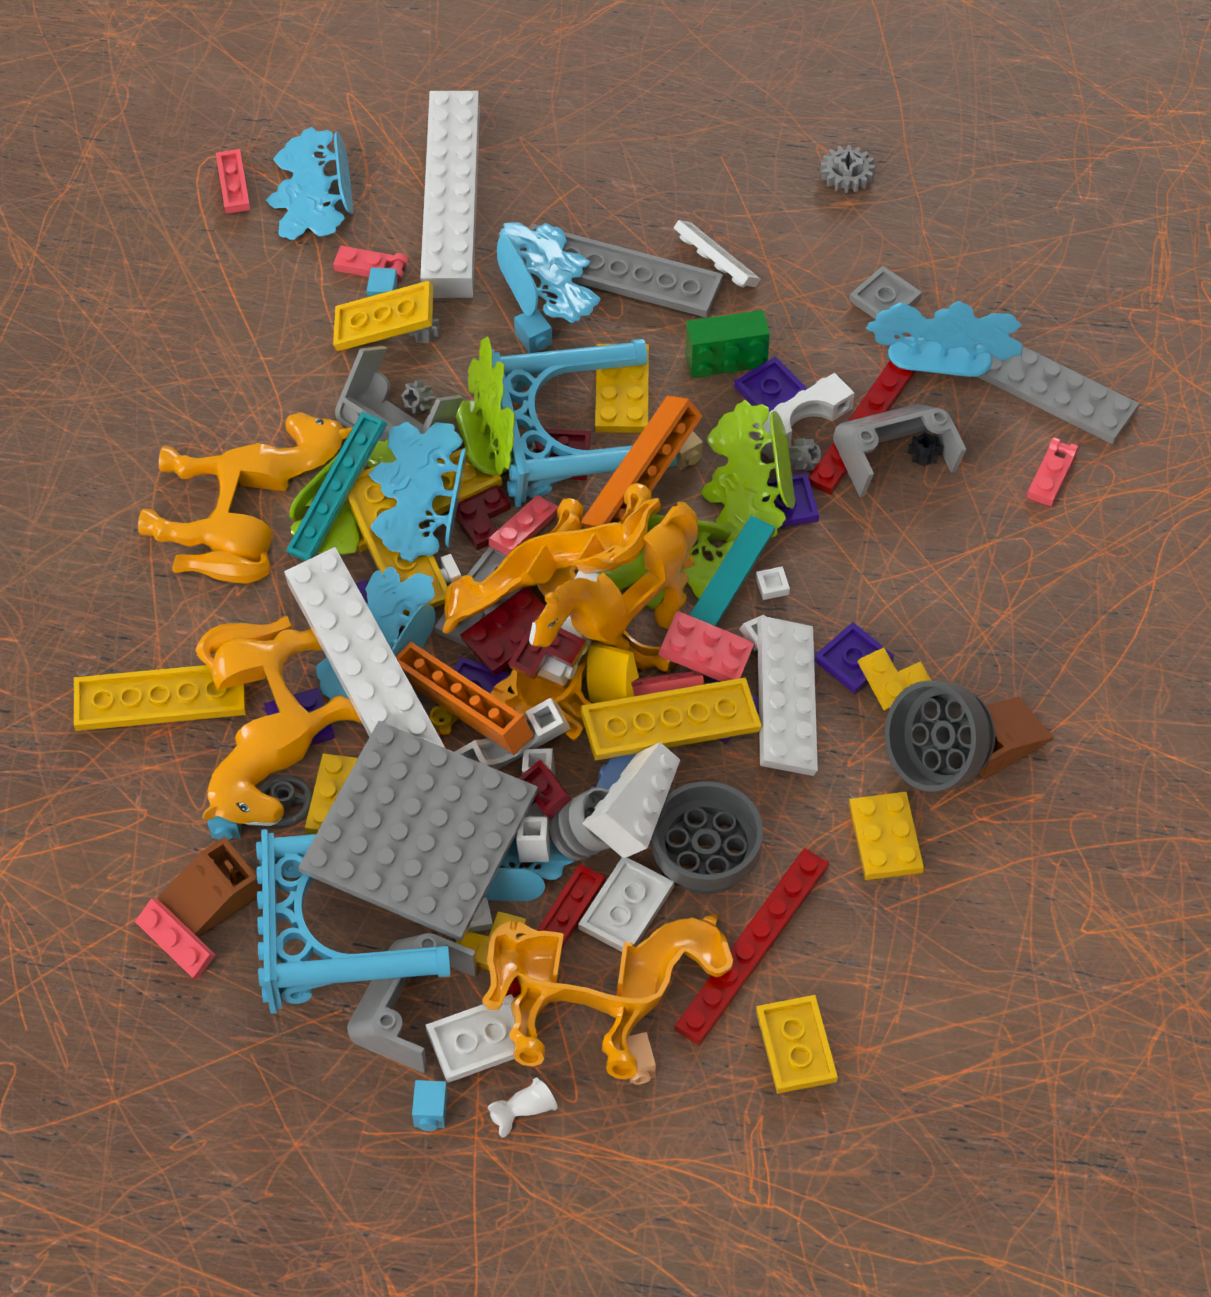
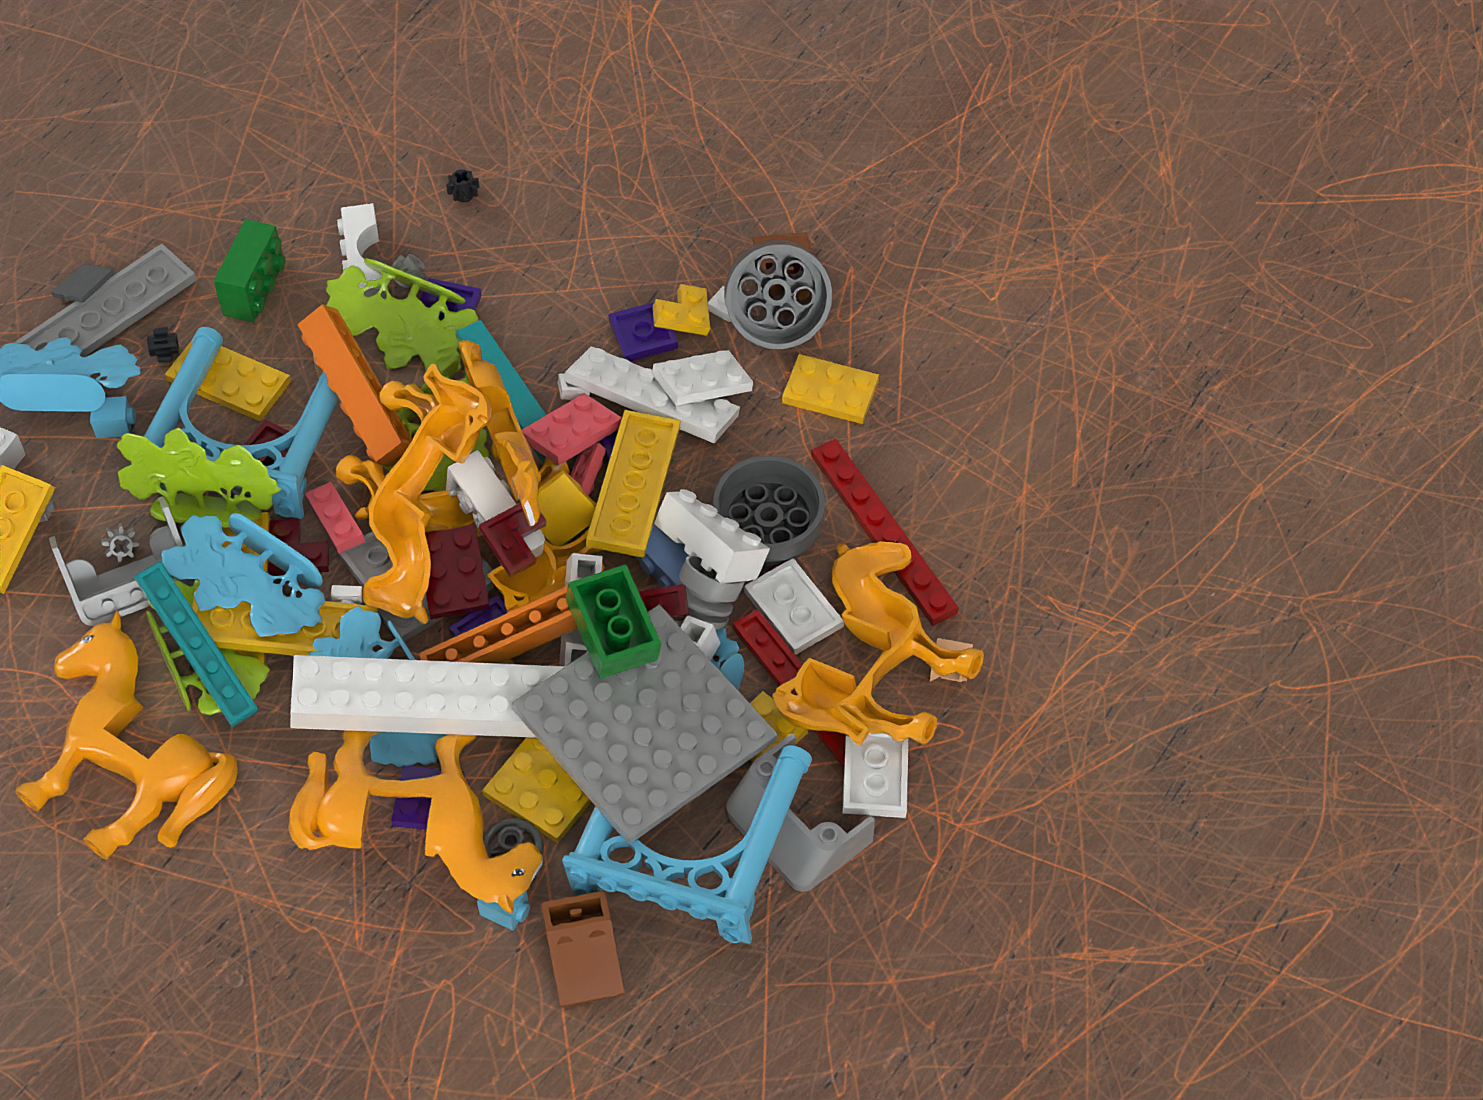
camera: 65 degrees left, 0 degrees up
(153, 698) = (318, 921): yellow plate -> none
(175, 938) = (615, 1002): coral plate -> none
(429, 1104) = (915, 845): medium azure brick -> none
(481, 751) = (613, 621): none -> green brick
(529, 1101) = (954, 761): white animal -> none
(622, 327) = (163, 344): none -> black gear
(651, 245) = (82, 283): none -> dark grey piece
(711, 250) = (121, 243): white plate -> none
(769, 384) = (313, 264): dark purple plate -> none
(772, 583) = (527, 355): white plate -> none
(796, 1044) = (997, 538): yellow plate -> none
(825, 724) = (702, 377): none -> white plate
(835, 169) = (114, 103): light grey gear -> none
(864, 434) = (433, 219): light grey windscreen -> none
(877, 400) = (392, 208): red plate -> none
(883, 291) = (277, 140): light grey plate -> none
(948, 340) = (365, 127): medium azure plant -> none
(1052, 472) = (544, 114): coral plate -> none
(1063, 393) = (437, 83): light grey plate -> none

